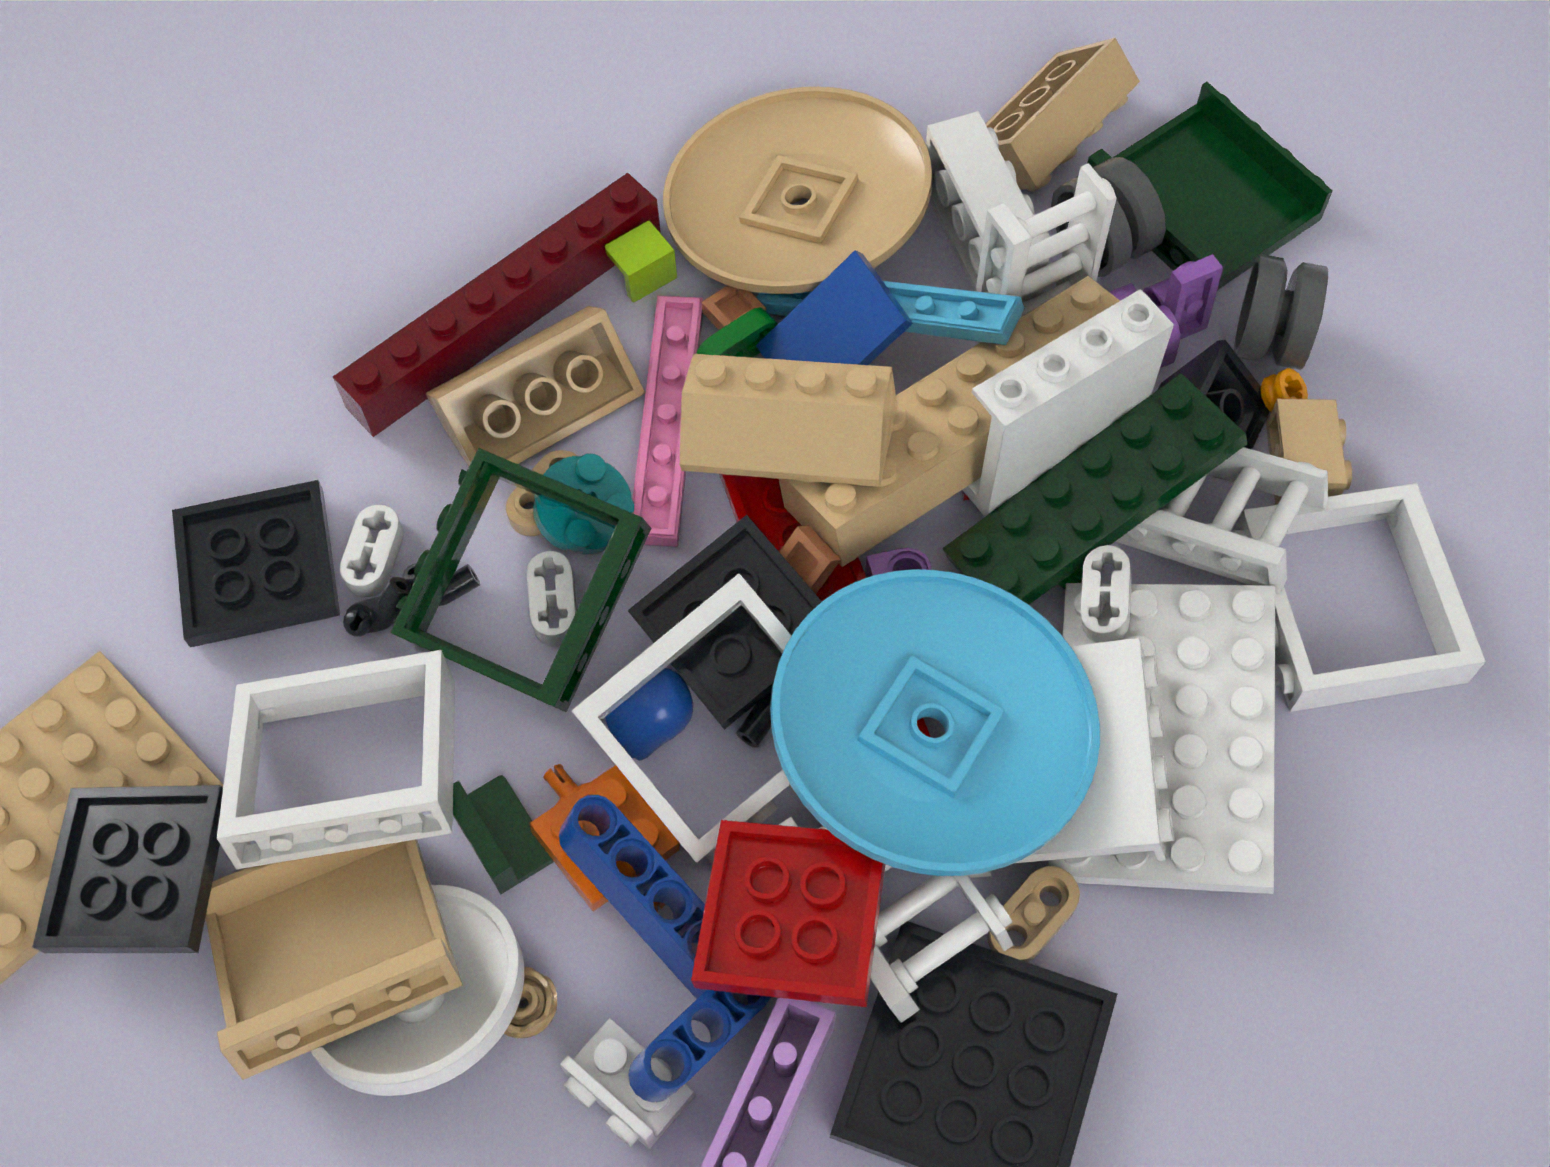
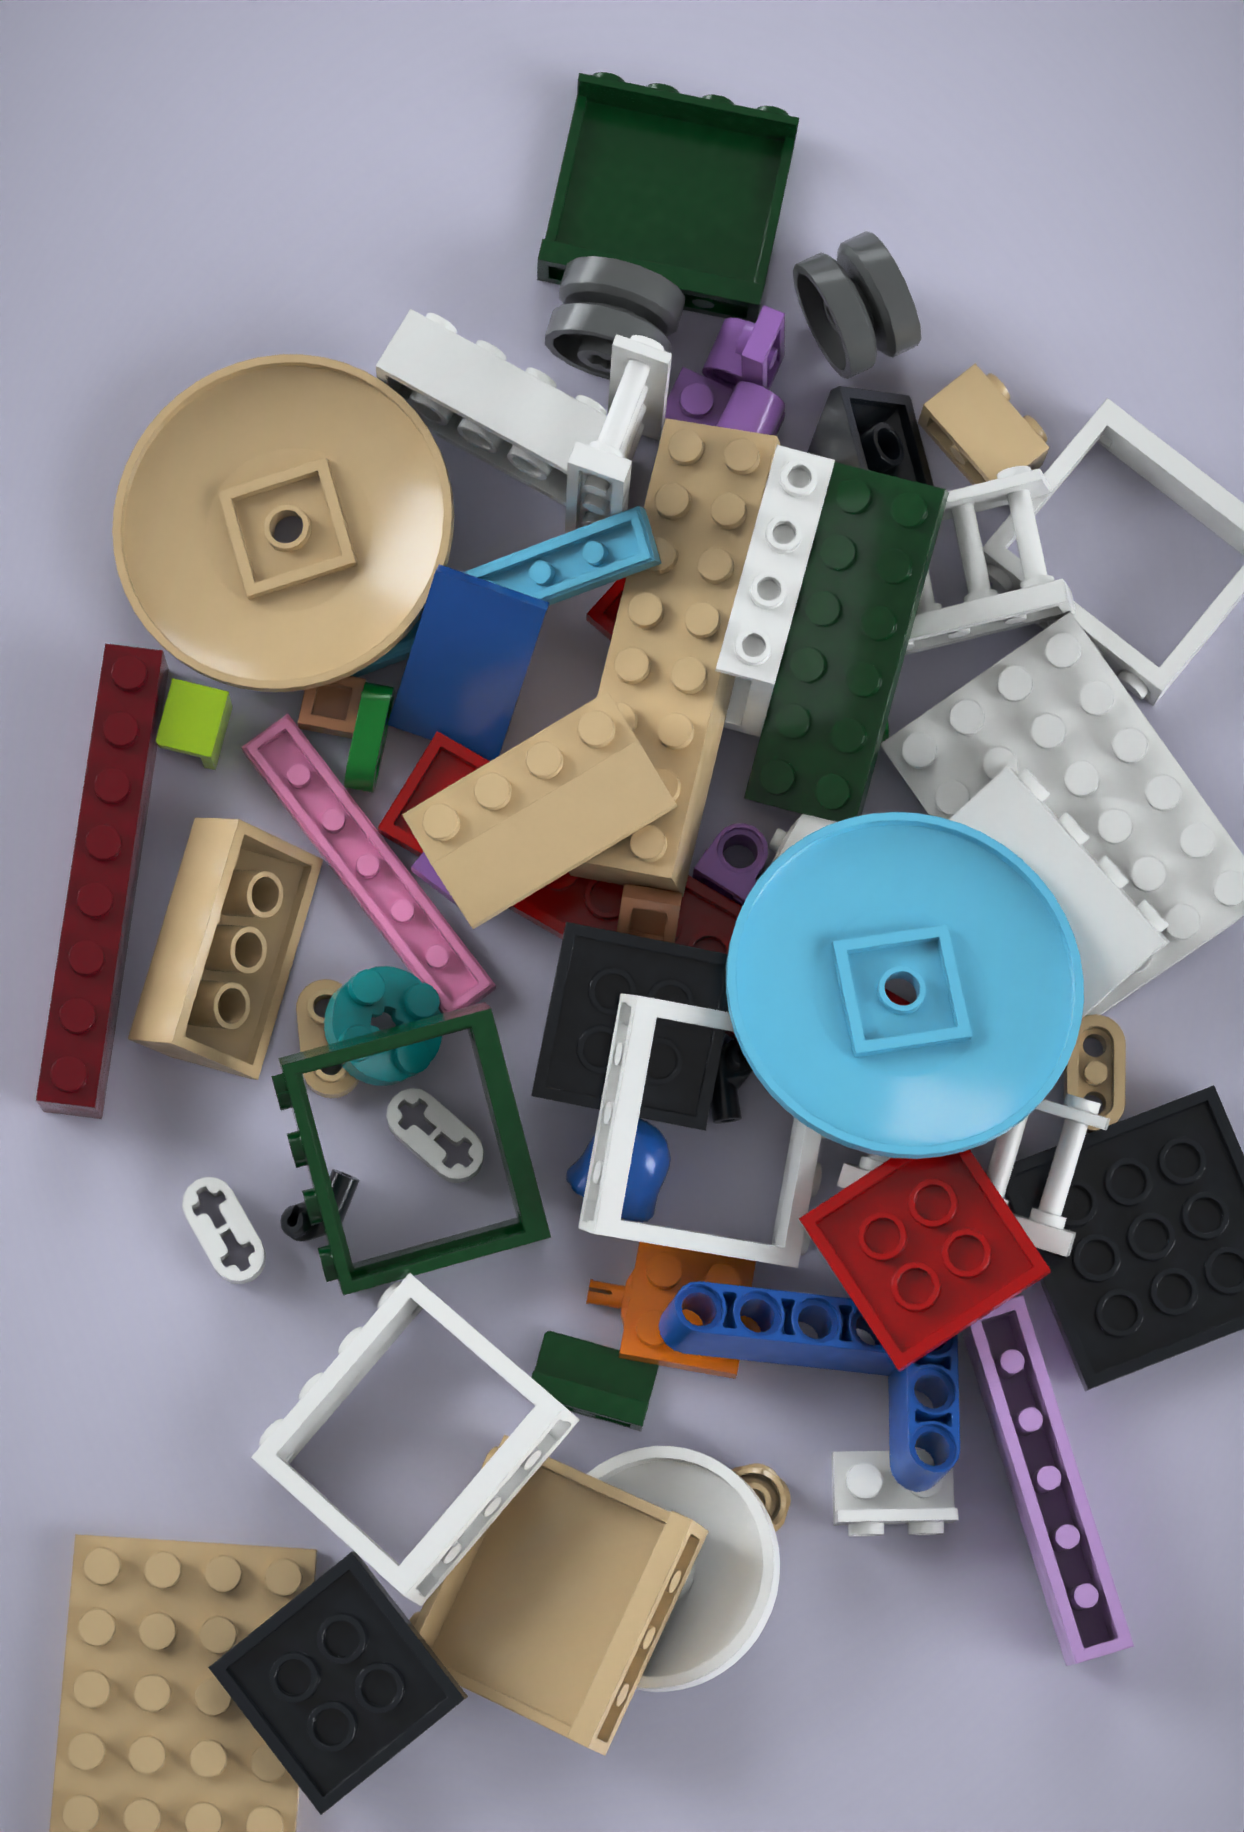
camera: 50 degrees left, 15 degrees up
(254, 563) = (130, 1334): black plate -> none
(377, 612) = (292, 1282): black arm -> none
(1061, 109) = (447, 220): tan slope -> none
(1095, 593) = (943, 725): white beam -> none
(1284, 385) = (915, 381): light orange bush -> none

